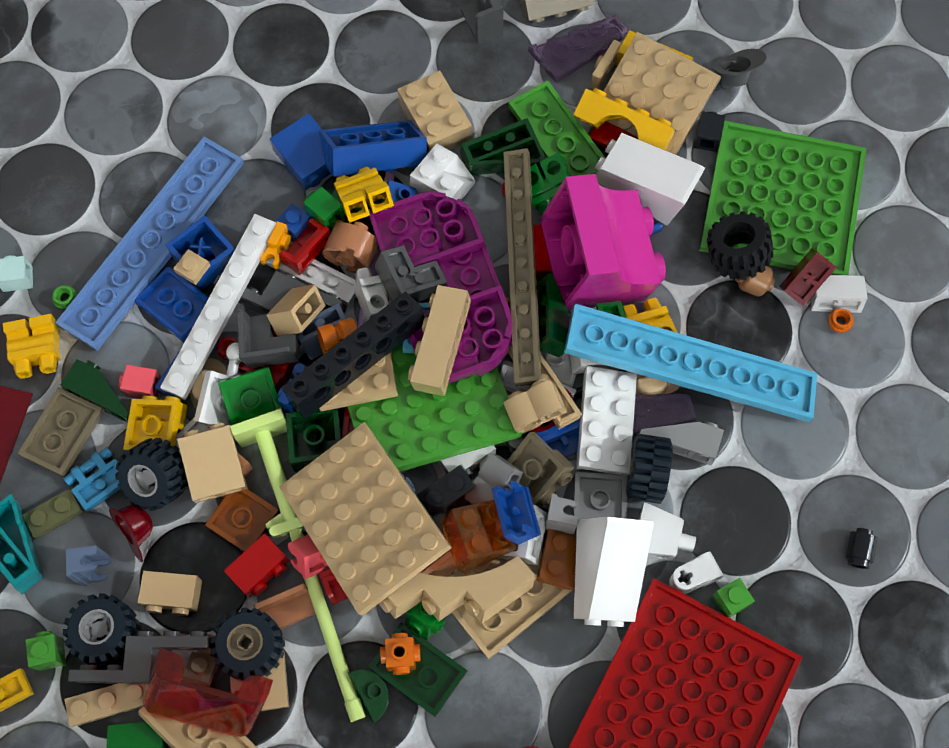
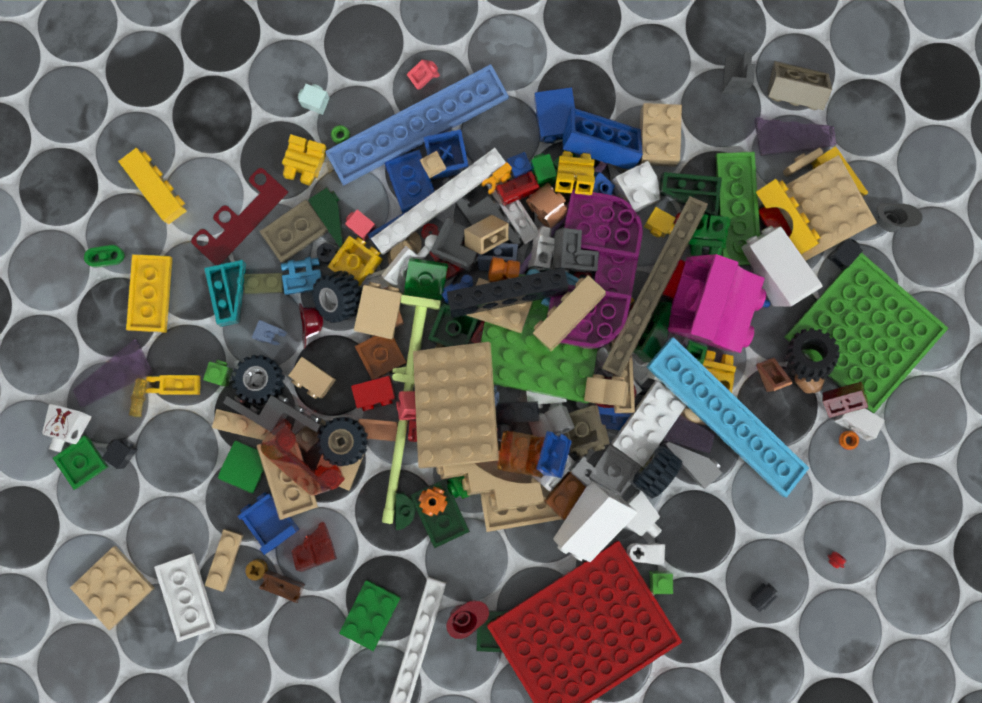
camera: 30 degrees right, 15 degrees up
(117, 442) = (326, 257): none -> black wheel
(129, 184) = (423, 73): none -> coral bracket
(488, 202) = (660, 223): none -> yellow brick
(713, 296) = (773, 375): none -> nougat slope
(915, 459) = (836, 560): none -> red plate

